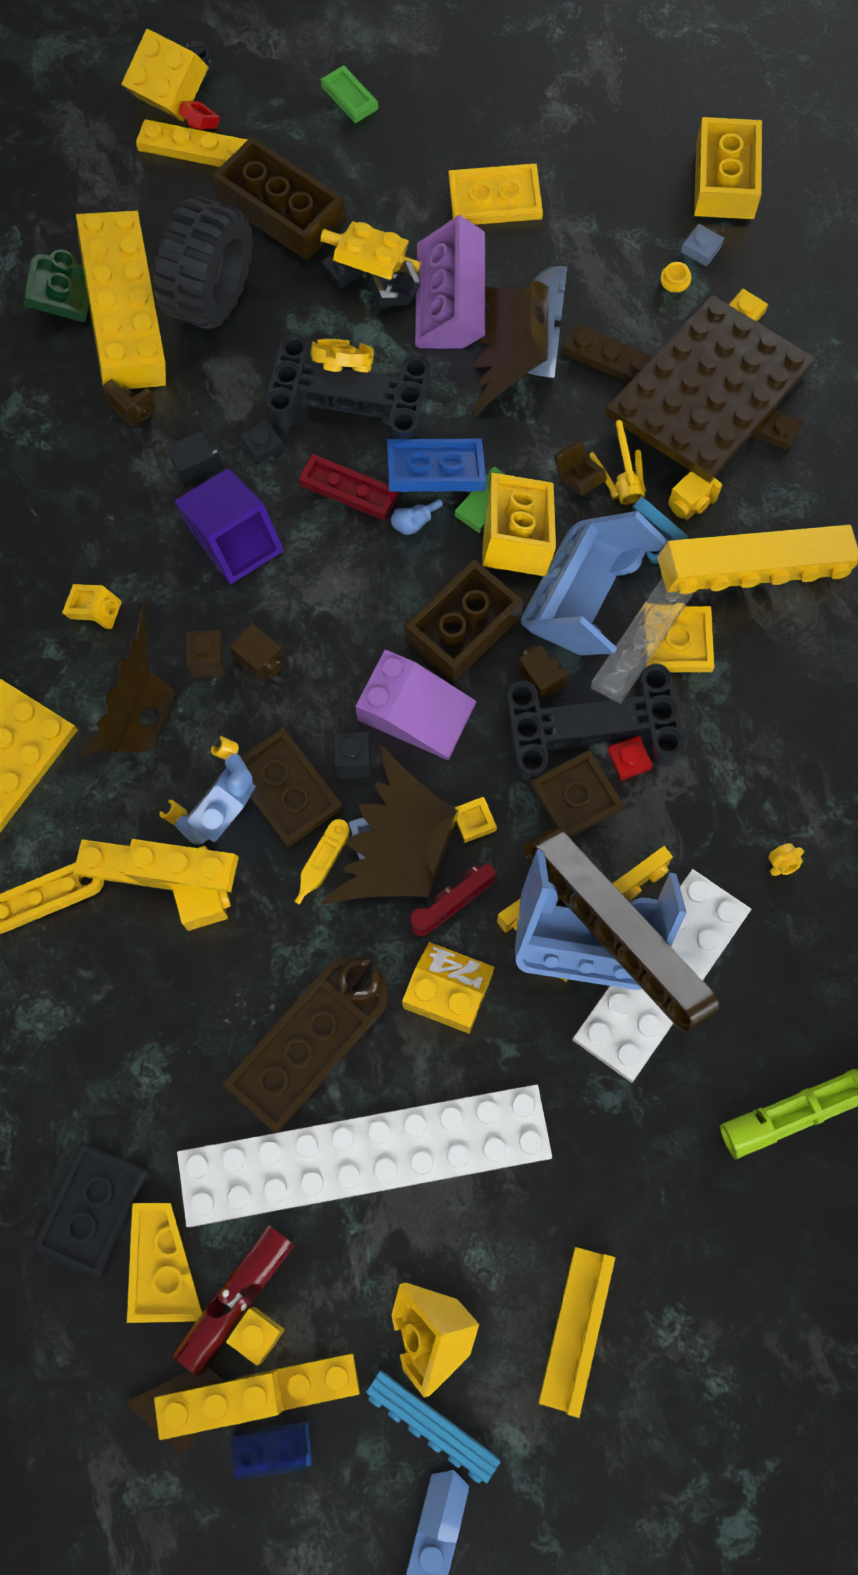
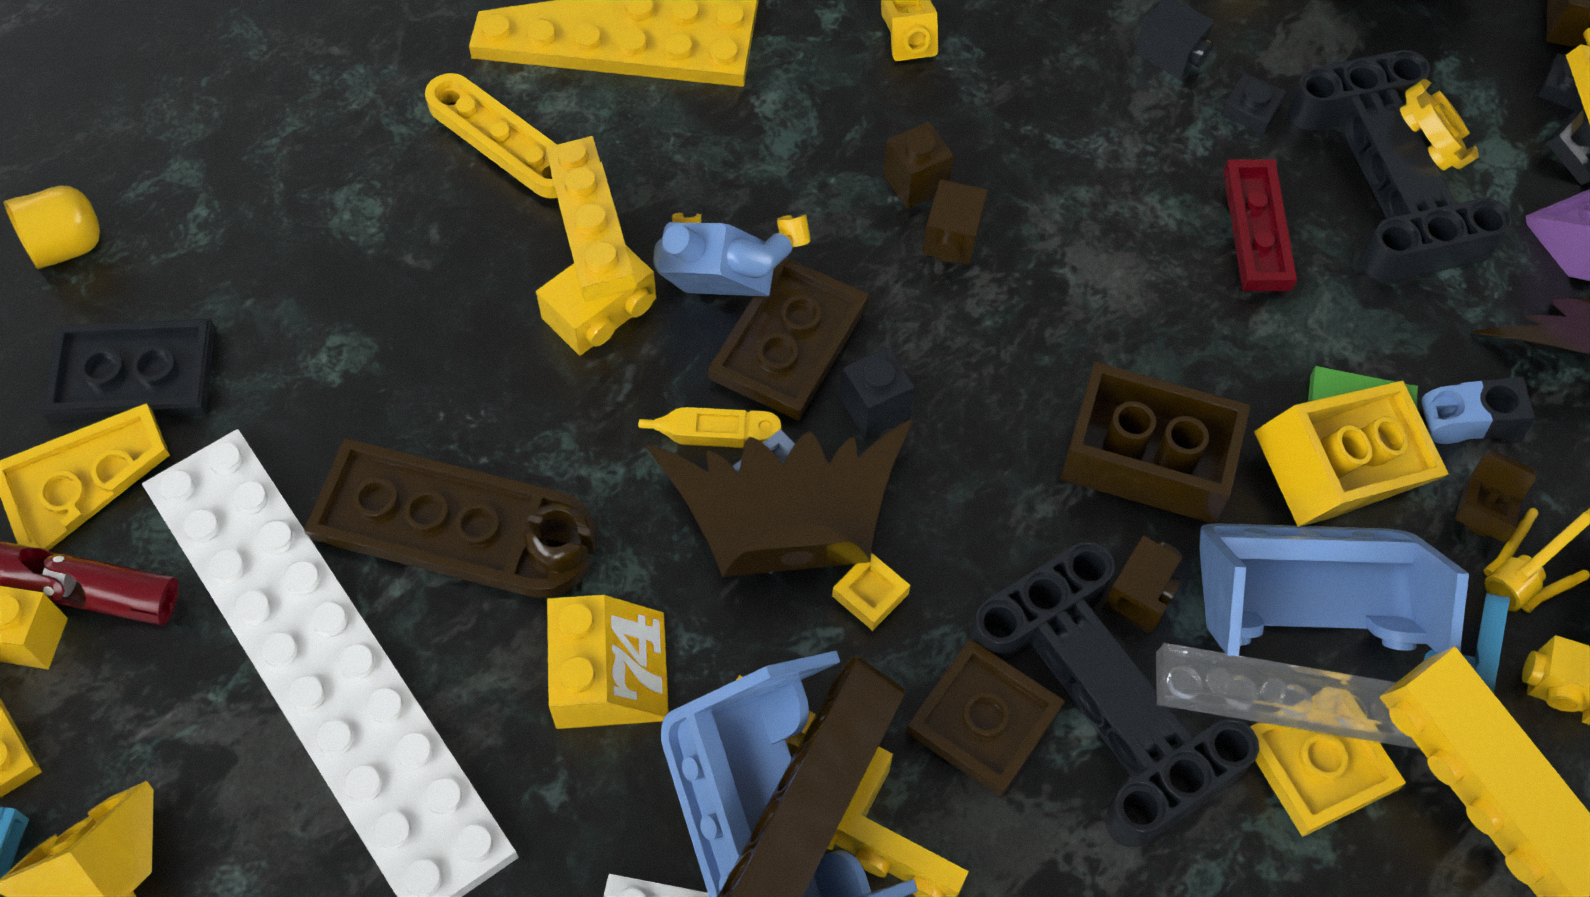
camera: 60 degrees right, 10 degrees down
(136, 691) = (799, 102): dark brown piece -> none
(230, 525) = (1108, 114): dark purple slope -> none
(412, 519) = (1261, 317): medium blue piece -> none
(414, 705) = (995, 439): medium lavender slope -> none
(436, 465) = (1364, 309): blue plate -> none
(452, 900) = (736, 612): dark red plate -> none
(526, 445) = (1479, 411): none -> leg
(629, 758) = (1089, 771): red plate -> none

